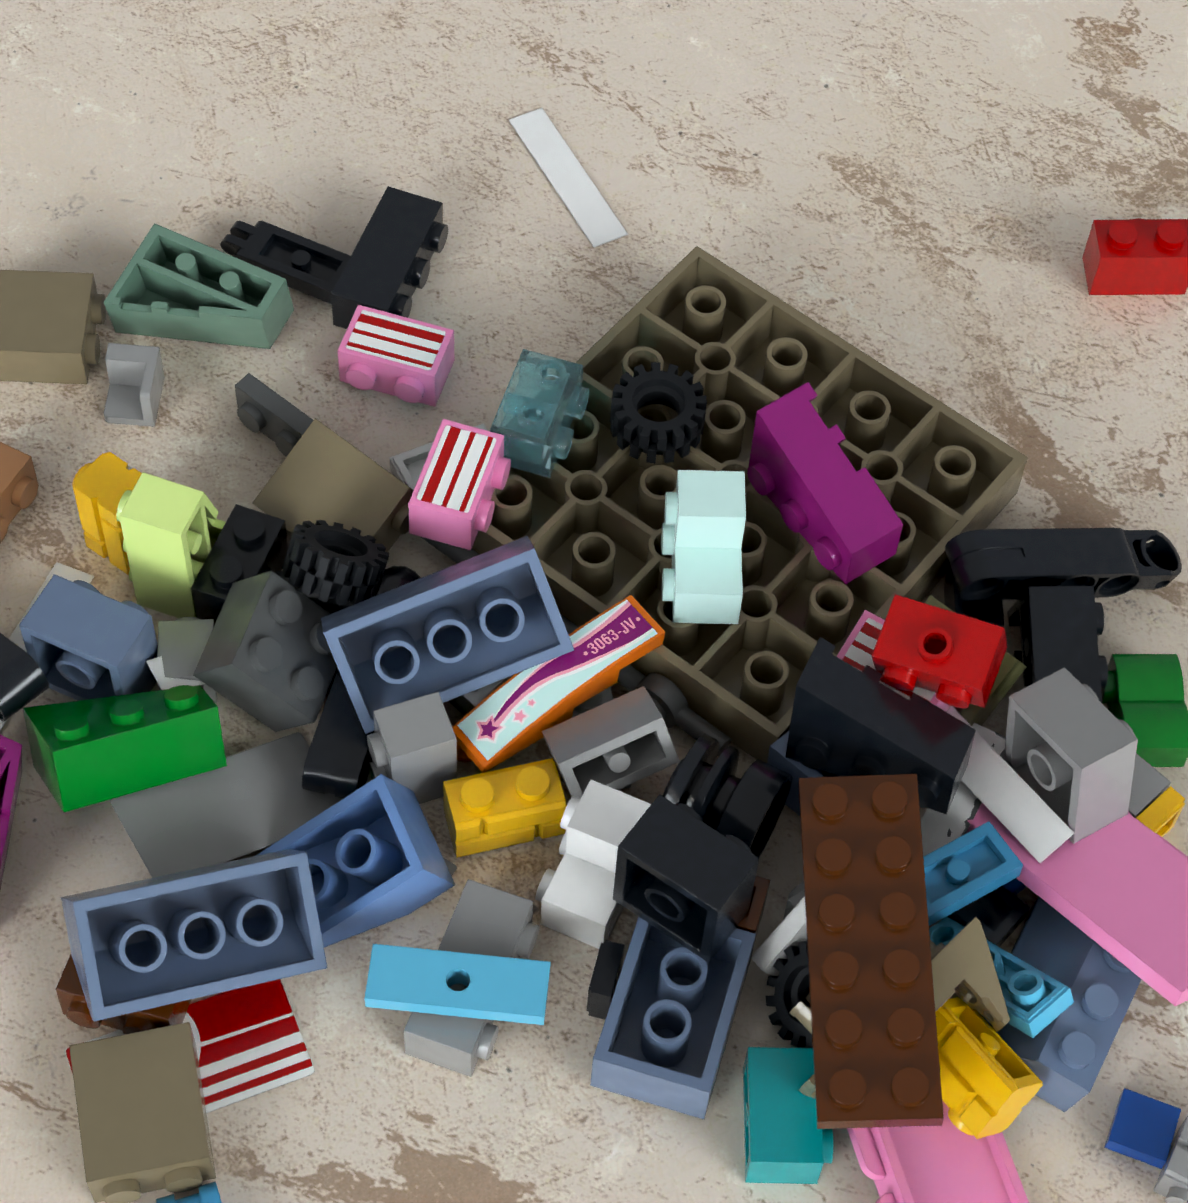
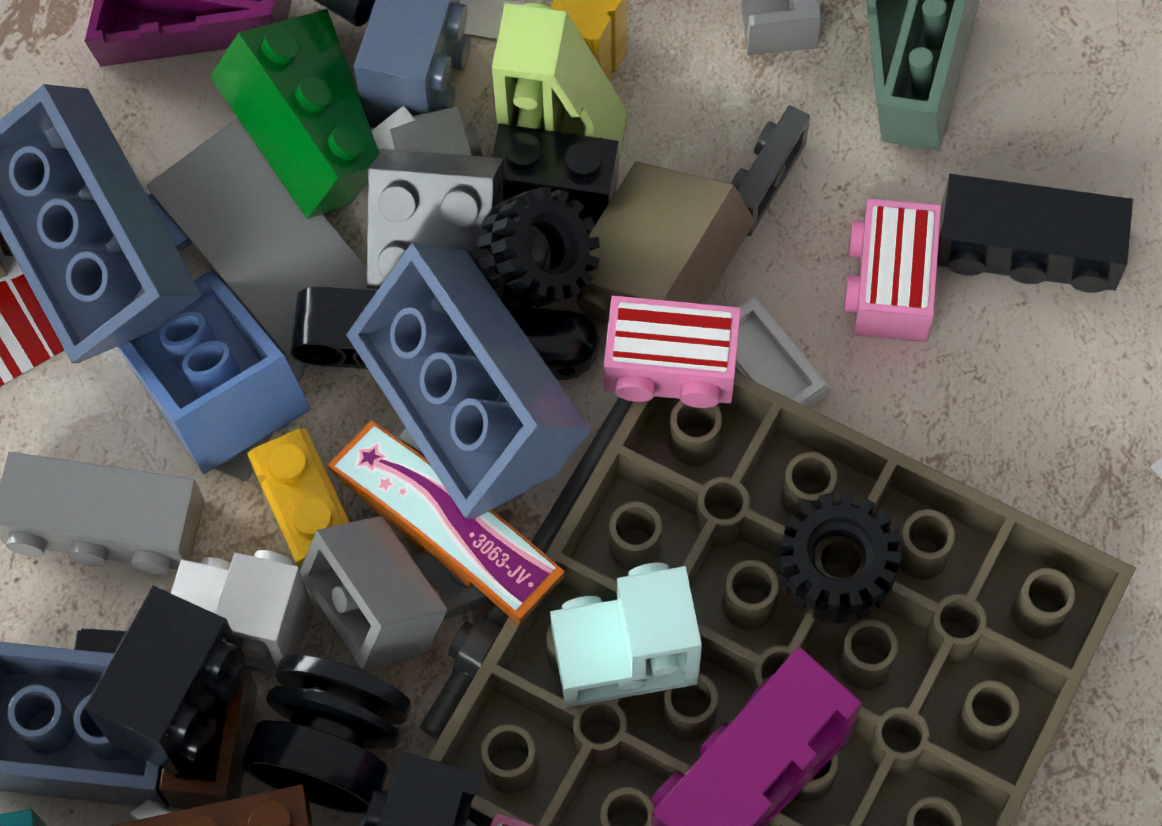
camera: 85 degrees right, 10 degrees up
(302, 262) = (1011, 122): black hinge -> none
(414, 746) = (339, 386): light grey brick -> none
(421, 982) = (46, 454): medium azure tile -> none
(539, 411) = (798, 418): clear light blue brick -> none

